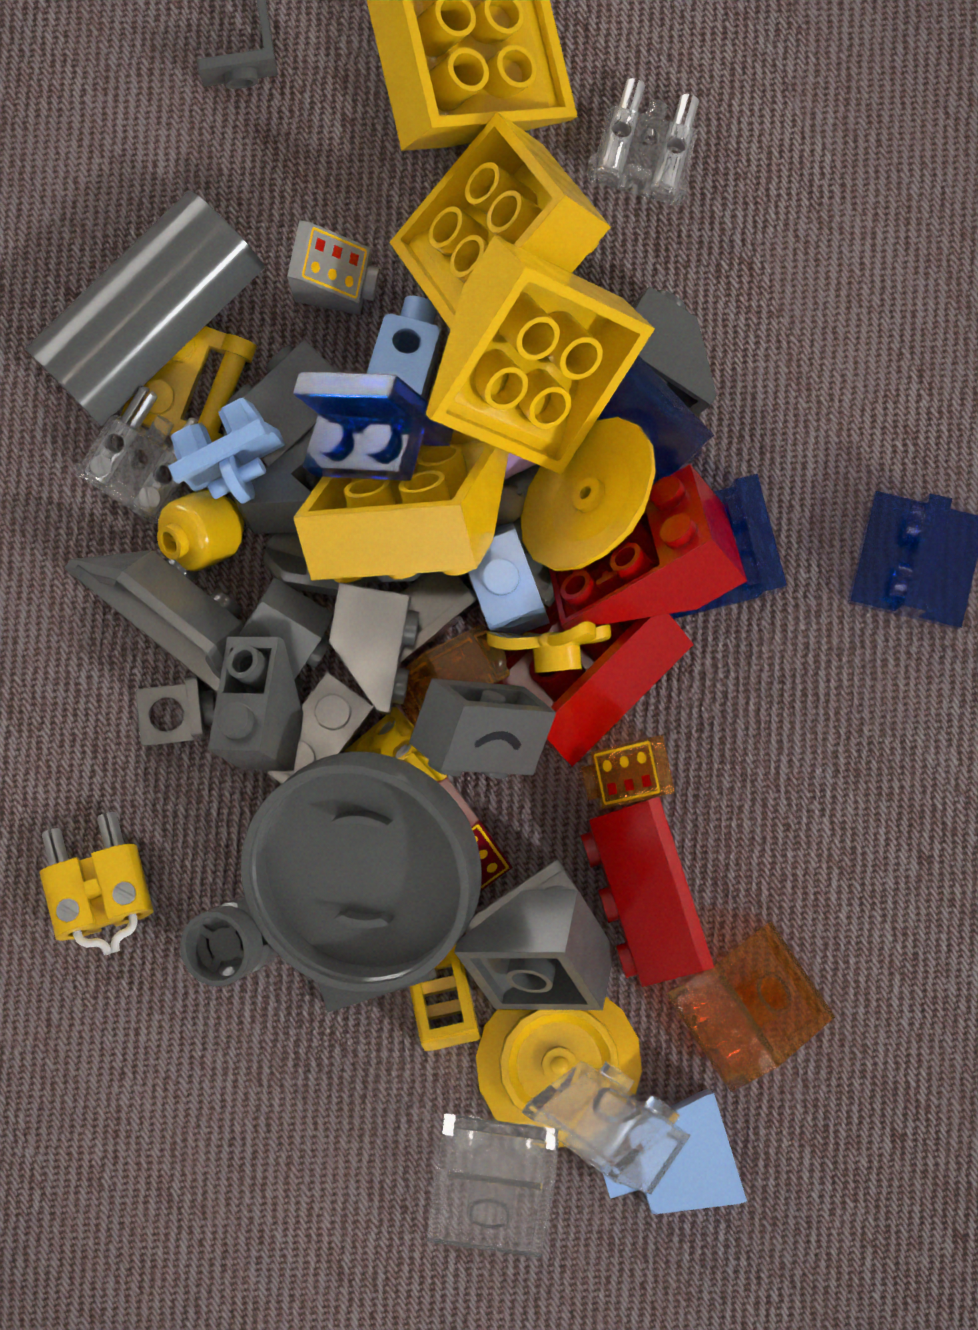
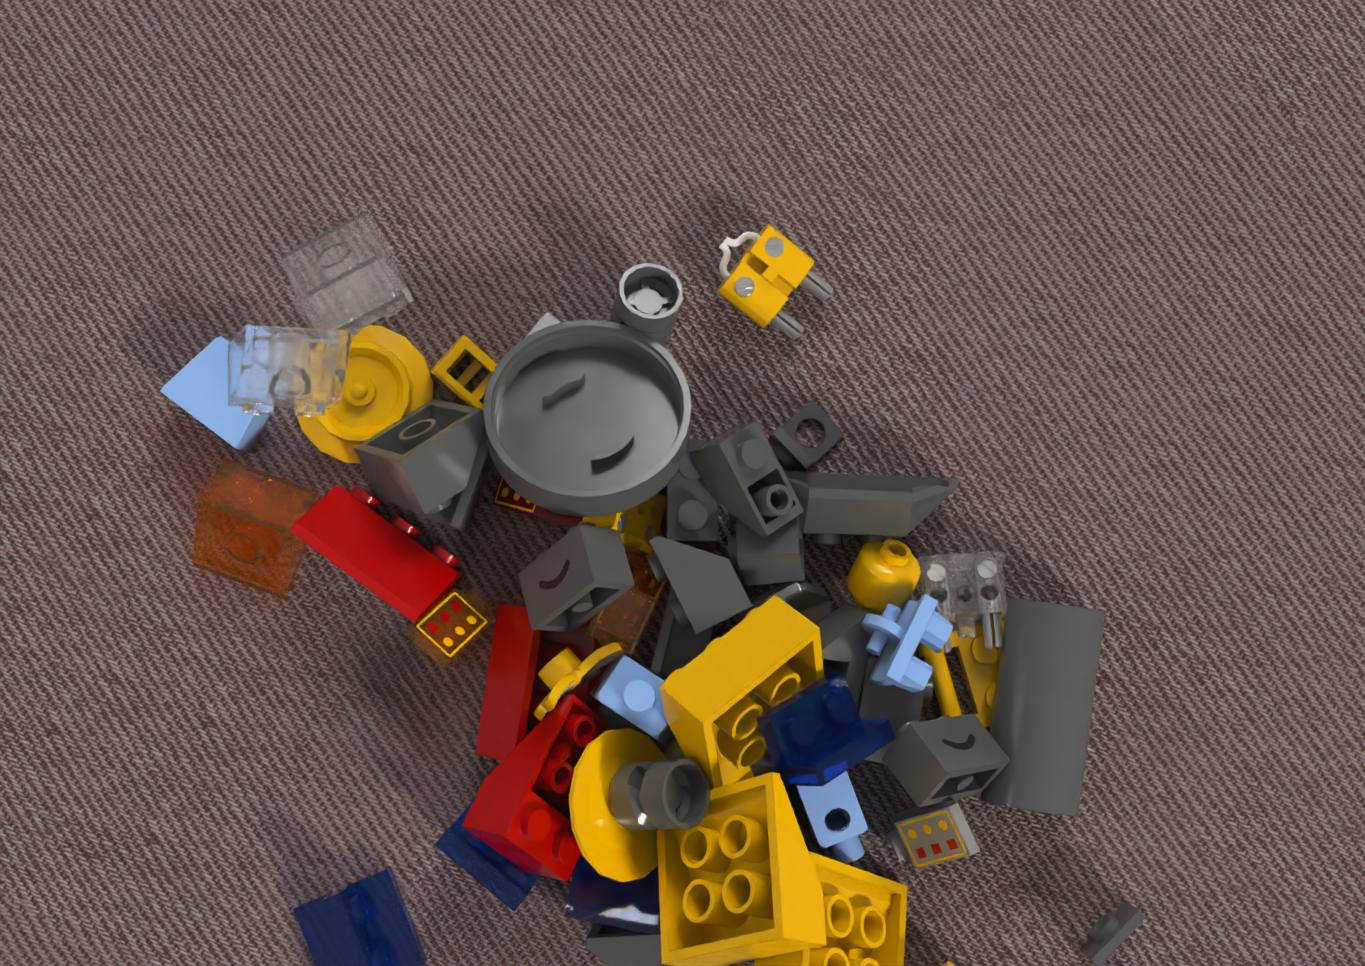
camera: 150 degrees right, 0 degrees up
(269, 323) = (945, 758): none -> dark grey brick
(548, 477) = (659, 794): none -> dark grey wheel

